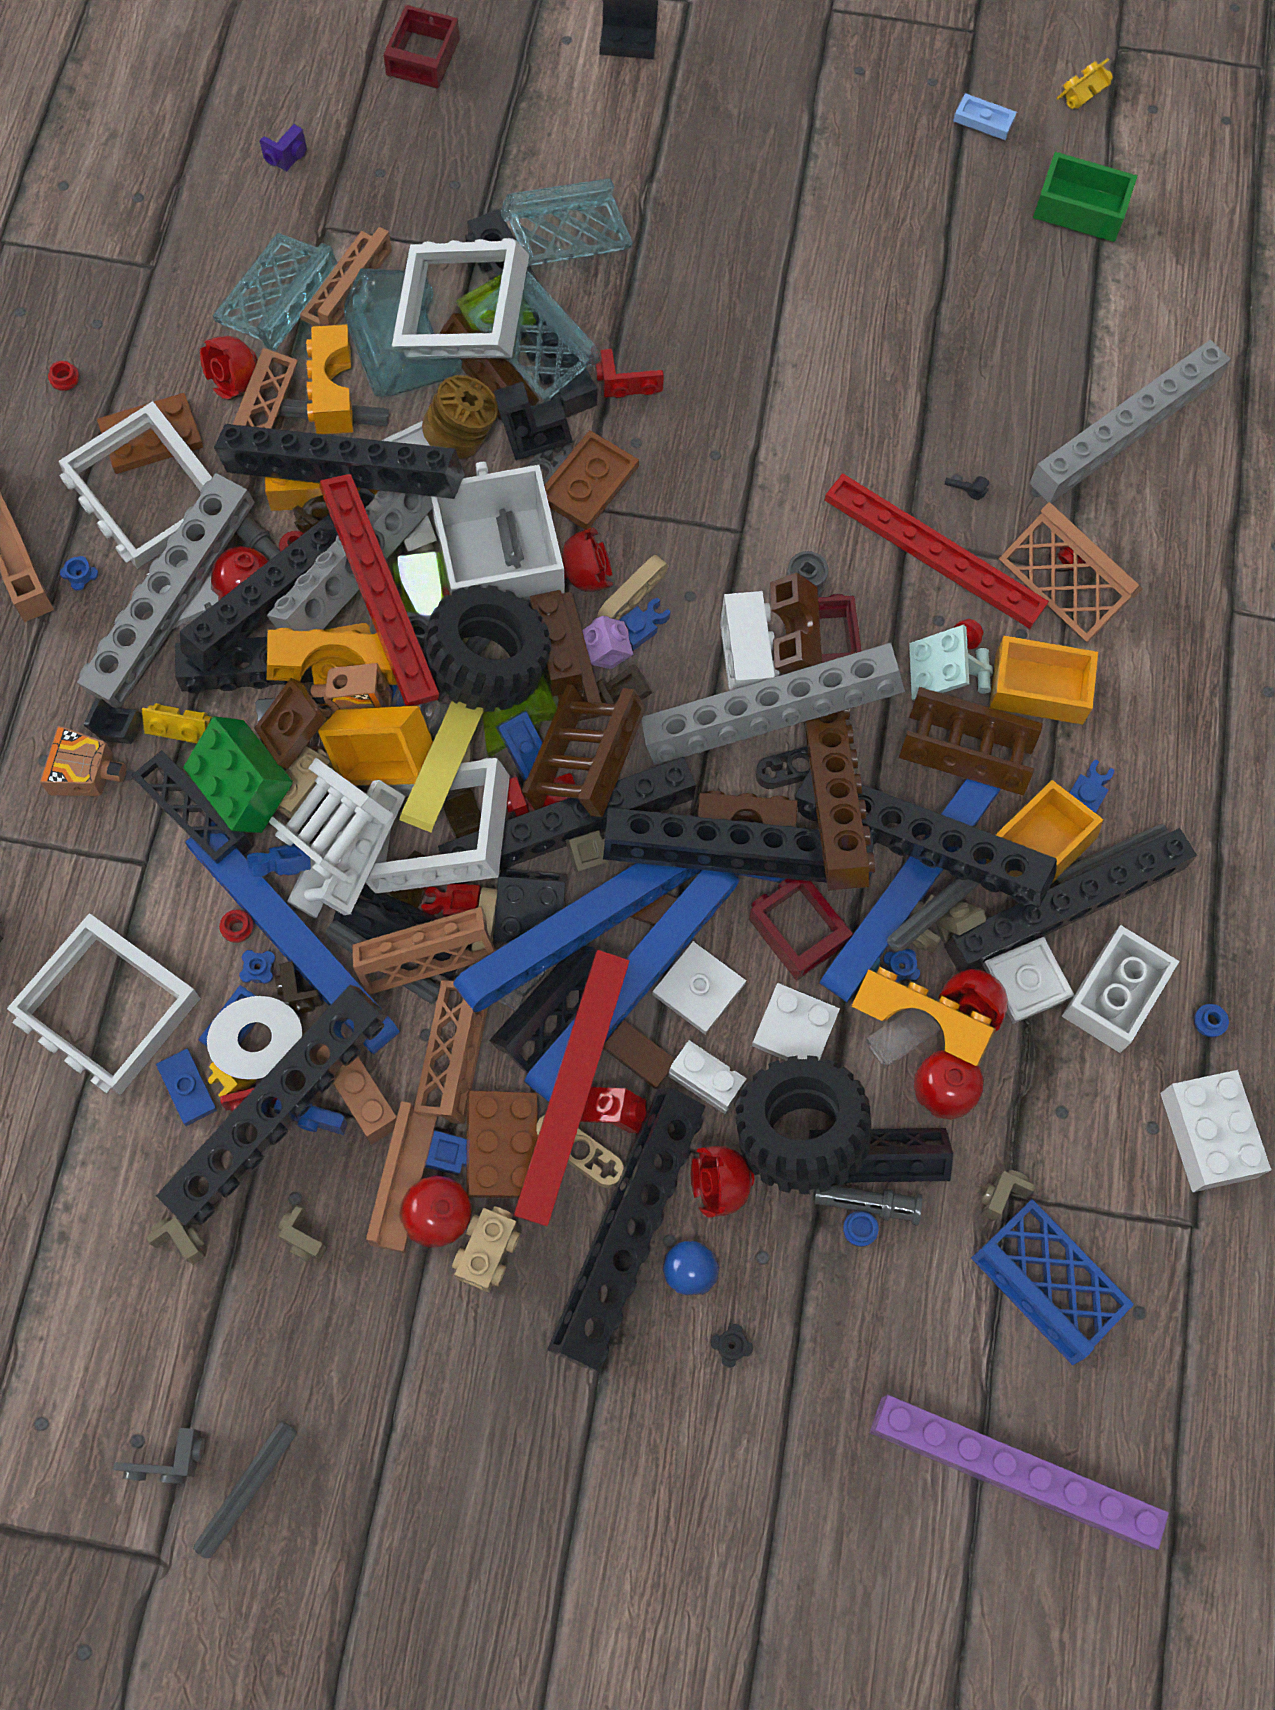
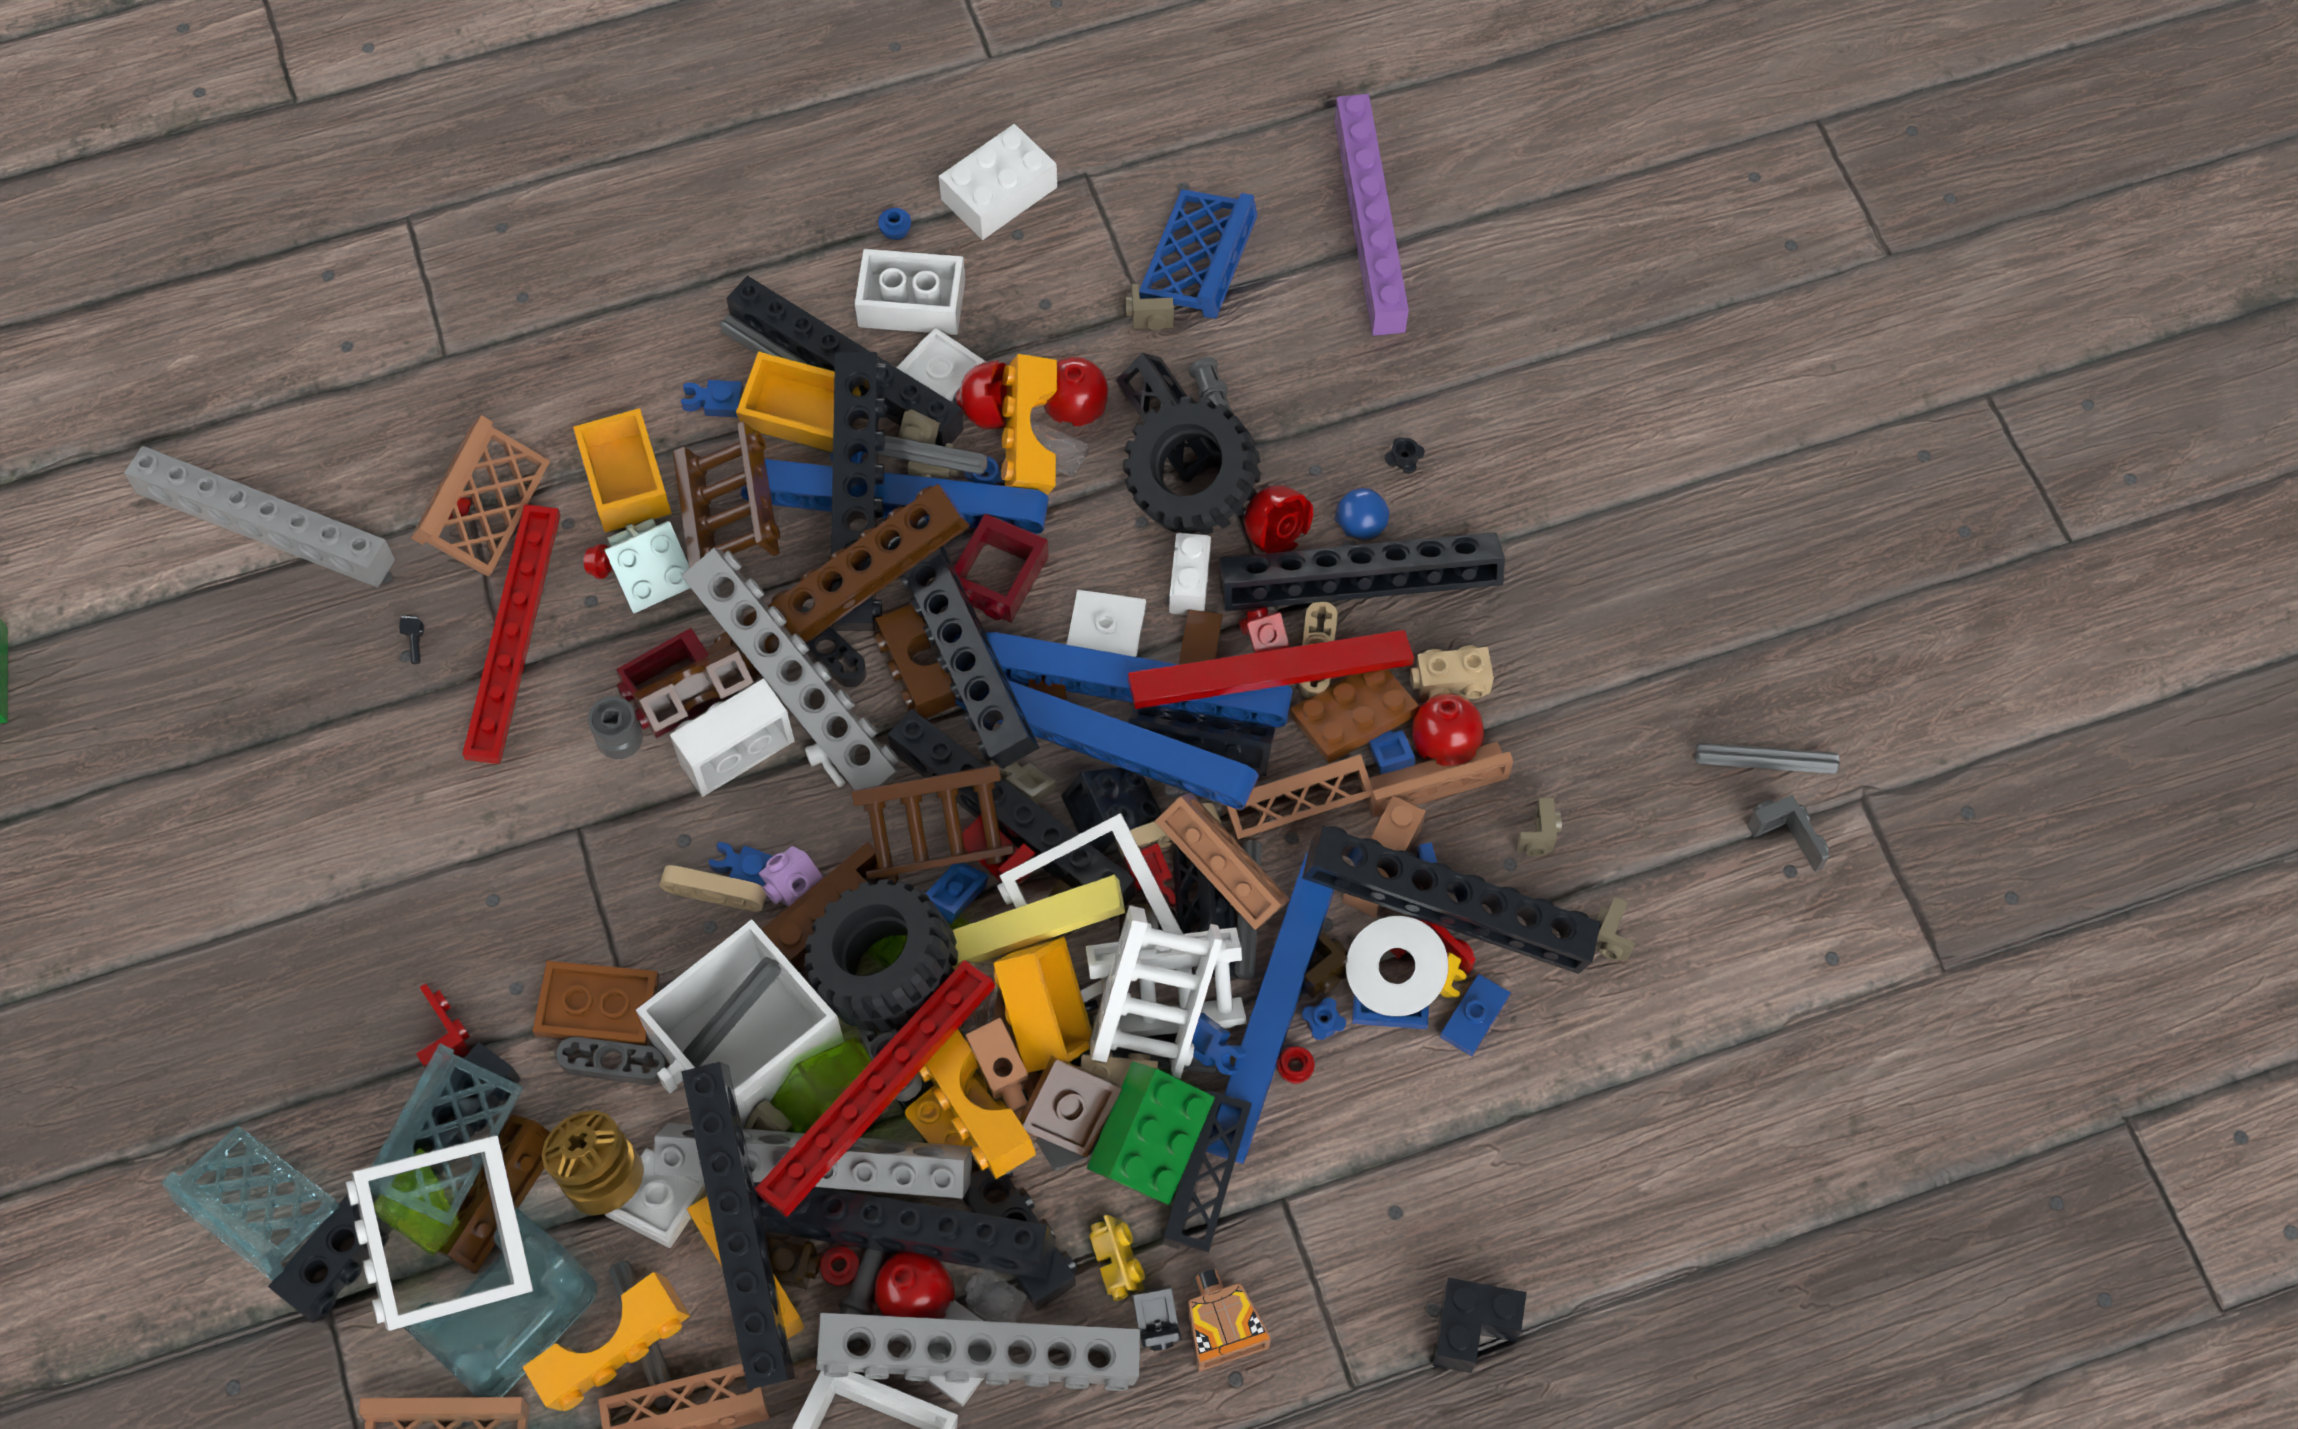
camera: 115 degrees left, 5 degrees down
(61, 963) = (1459, 1068): white window -> none
(531, 427) = (558, 1082): black brick -> none
(586, 562) = (702, 939): red cylinder -> none
(630, 679) = (834, 837): dark brown bracket -> none
(795, 1025) = (1095, 533): white plate -> none
(860, 1228) = (1245, 403): blue plate -> none

